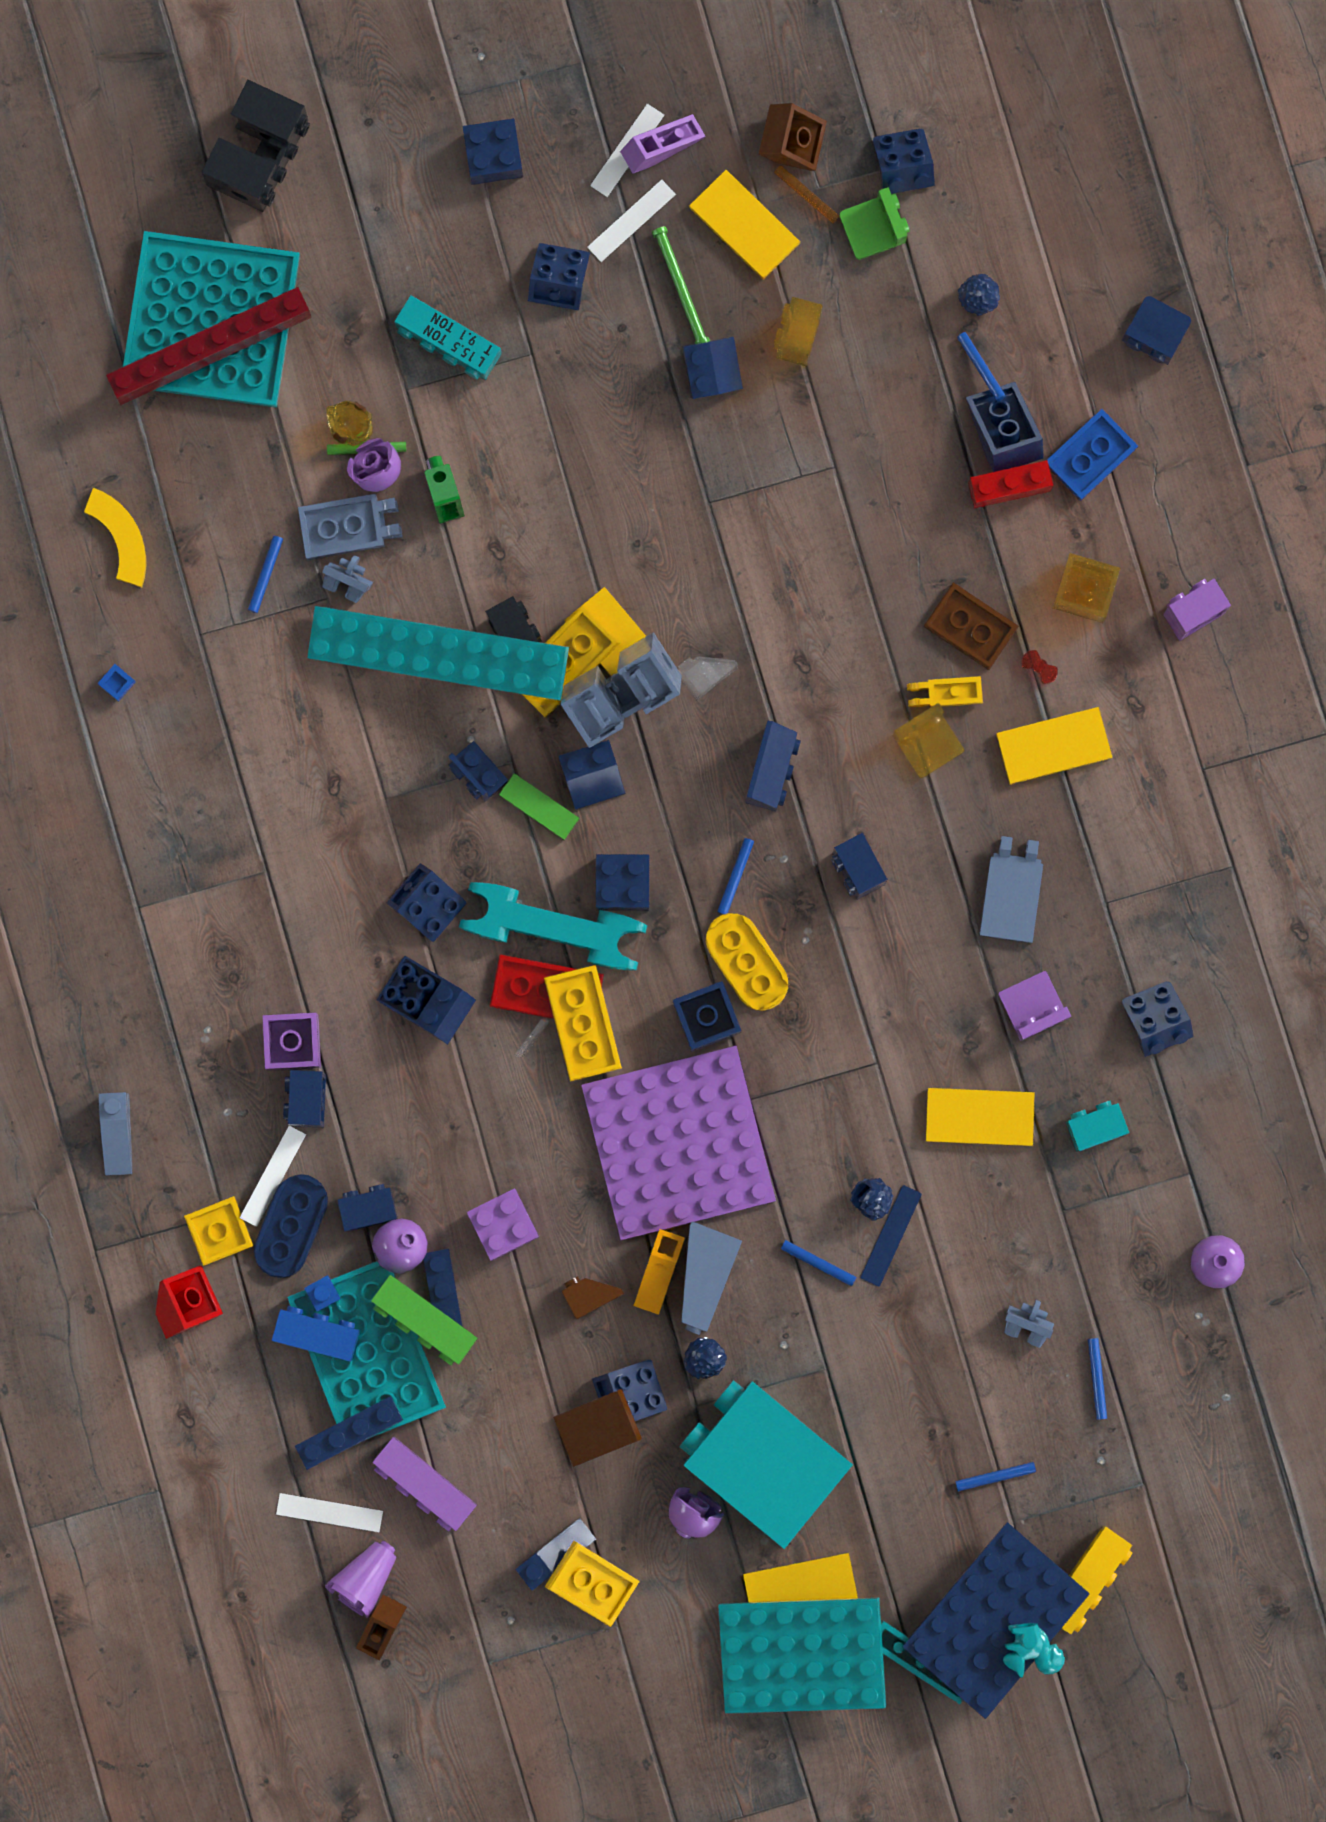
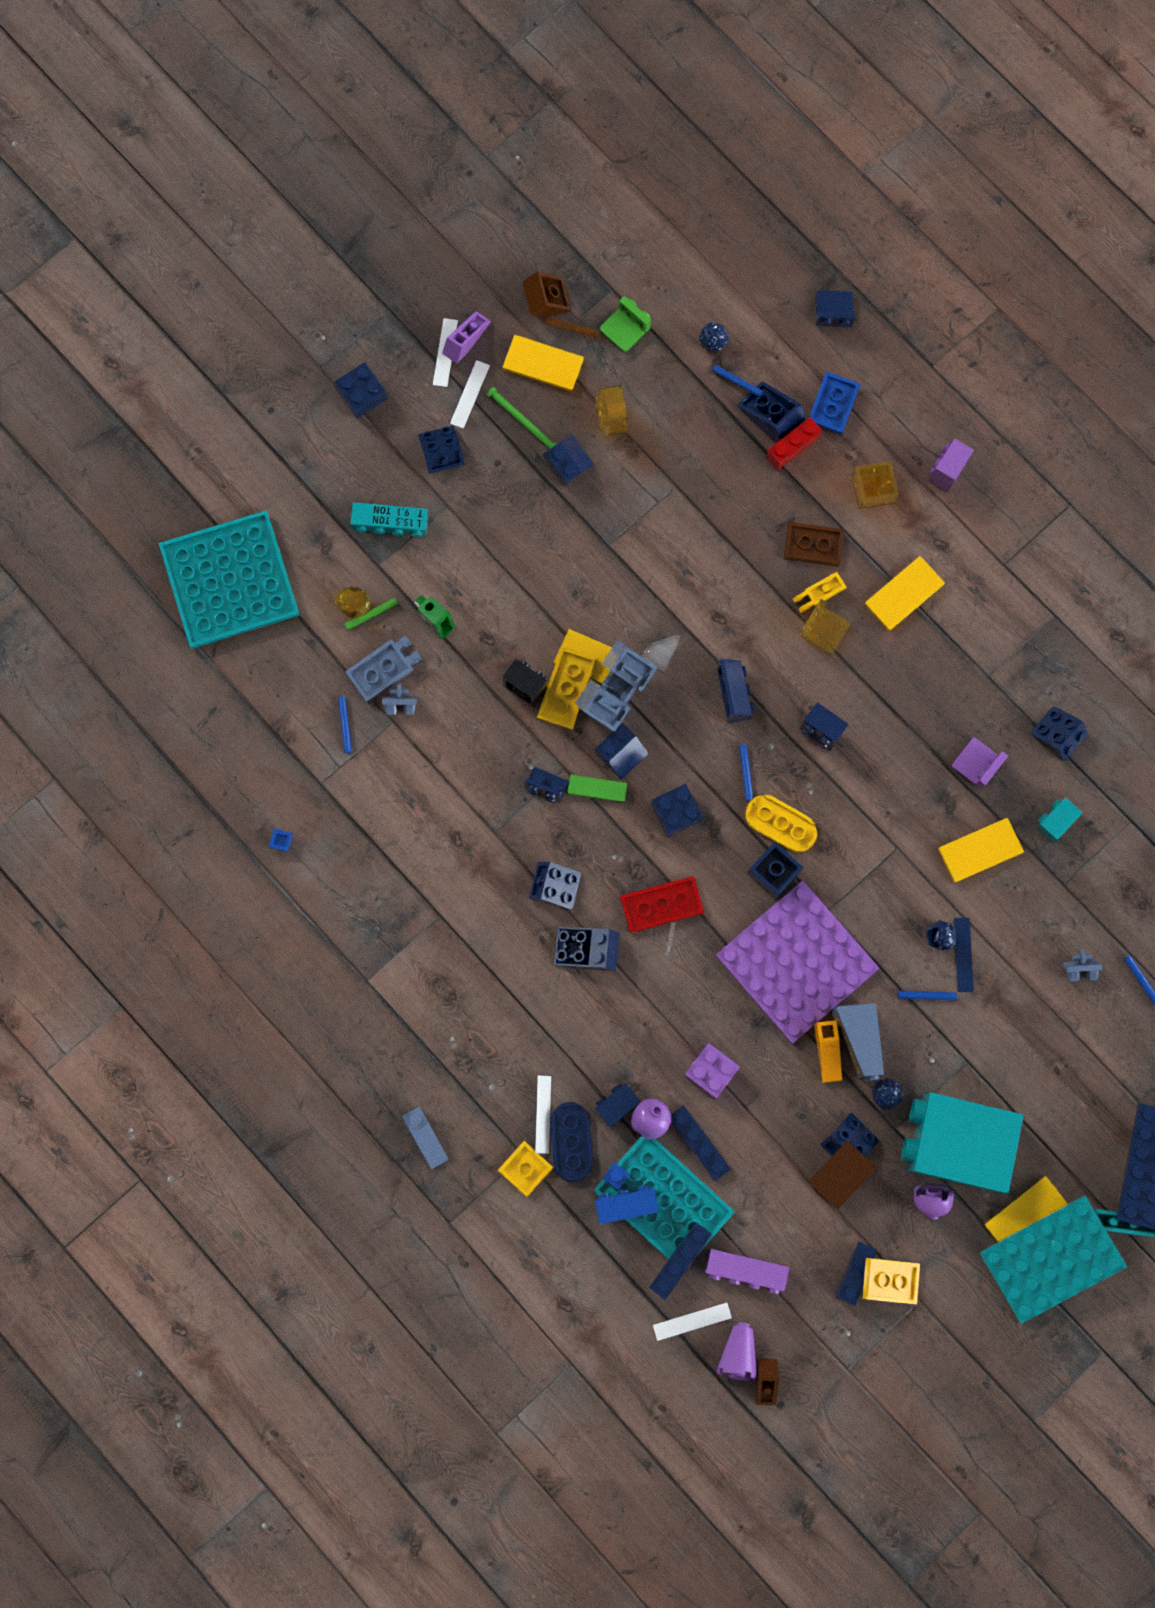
camera: 30 degrees left, 5 degrees down
(126, 535) = (240, 742): yellow tile -> none
(185, 1302) = (527, 1227): red slope -> none
(209, 346) = (237, 594): dark red brick -> none
(253, 176) = (211, 475): black piece -> none
(291, 1041) = (513, 1018): medium lavender brick -> none
(306, 1099) = (542, 1052): dark blue brick -> none
(375, 465) = (383, 620): medium lavender cylinder -> none
(423, 1319) = (693, 1159): bright green brick -> none
(438, 652) = (484, 718): teal plate -> none
(507, 915) = (677, 853): teal piece -> none
(582, 1023) = (696, 914): yellow tile -> none
(588, 1295) = (790, 1090): reddish brown slope -> none
(904, 161) = (624, 277): dark blue bracket -> none
(995, 1476) = (1112, 1078): blue bar -> none
(1012, 893) = (926, 698): sand blue tile -> none
(1047, 672) = (863, 547): clear red piece -> none

